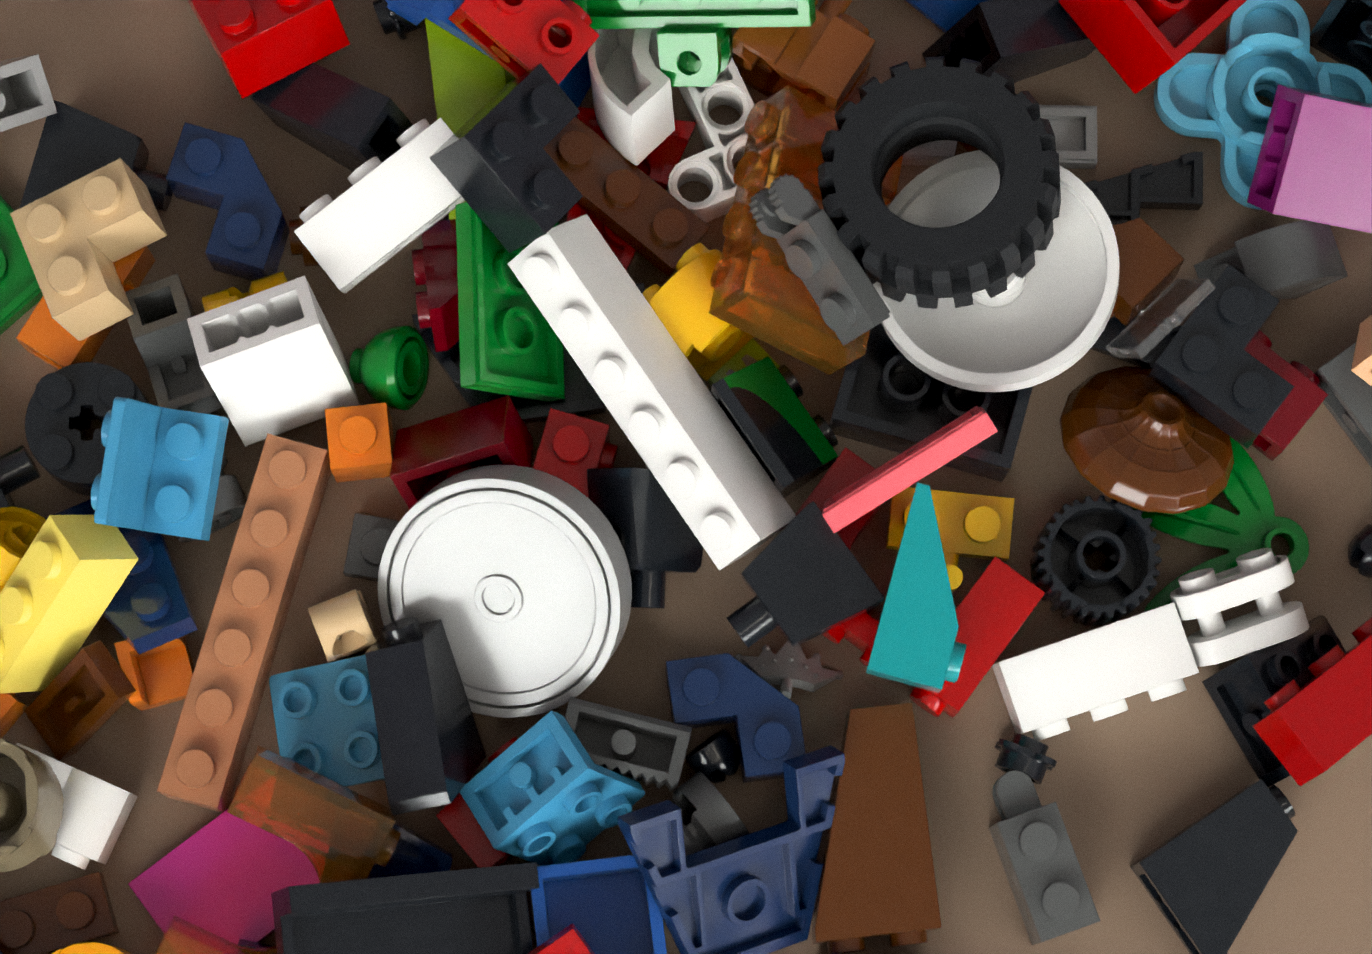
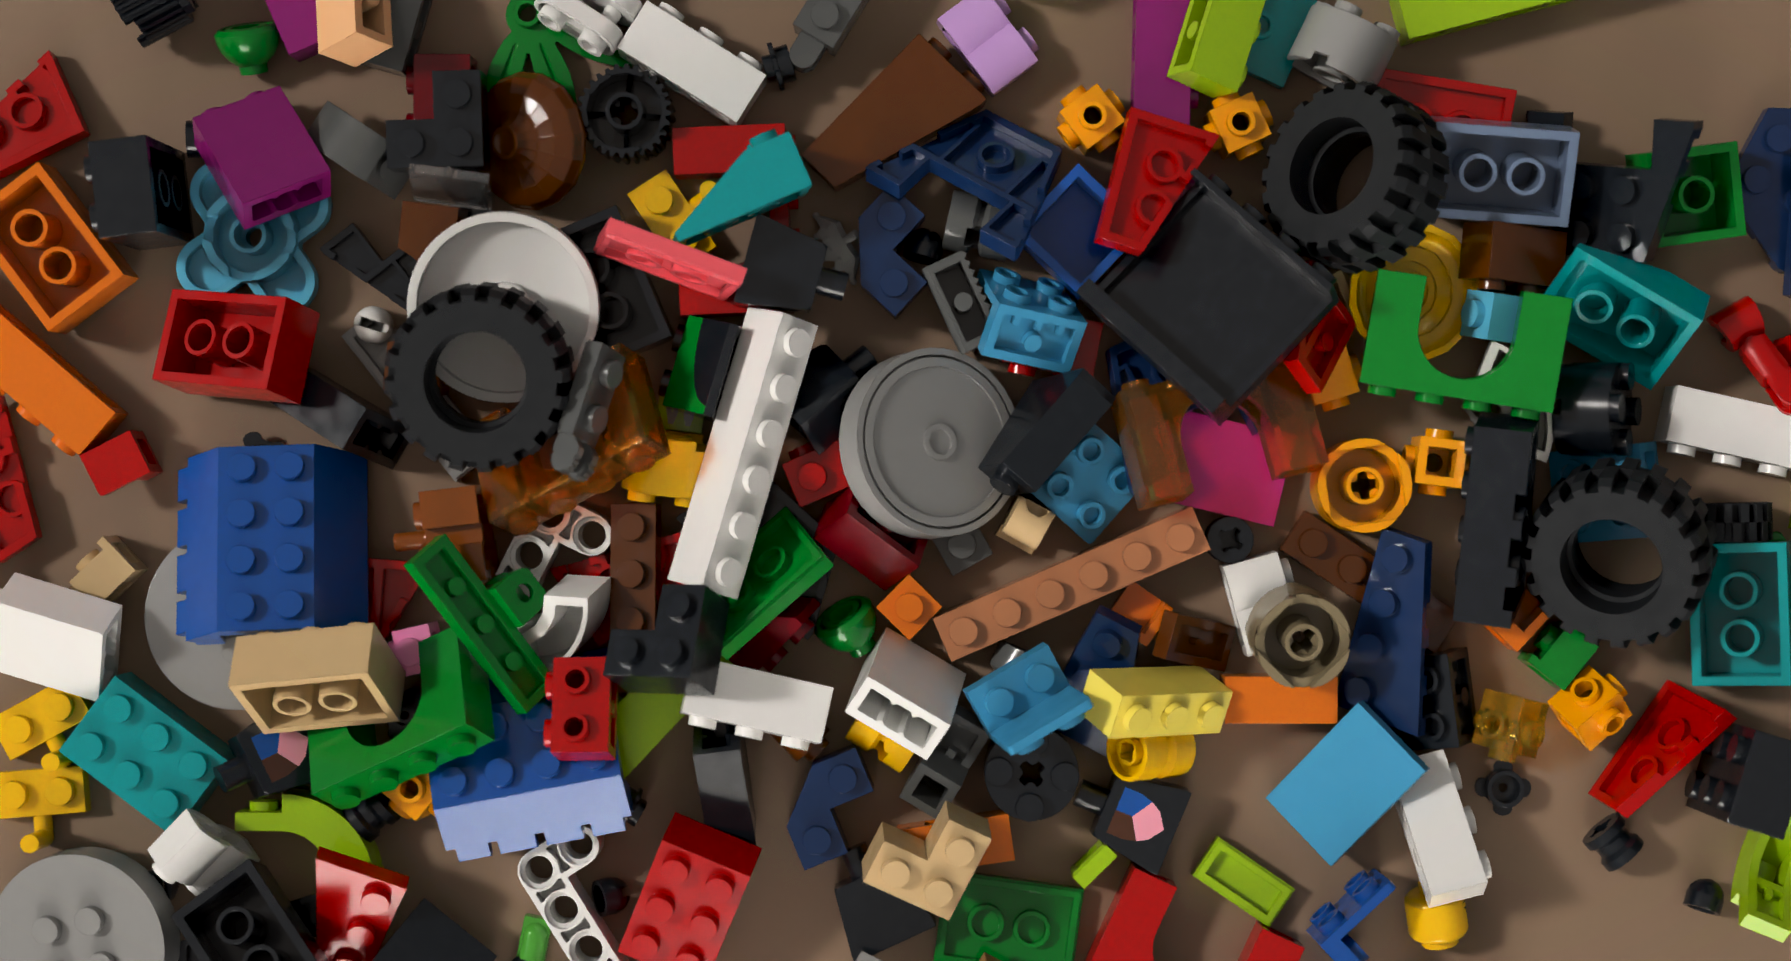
camera: 125 degrees left, 10 degrees up
(166, 831) = (1226, 538): none -> black wheel
(1087, 154) = (374, 314): none -> white hinge

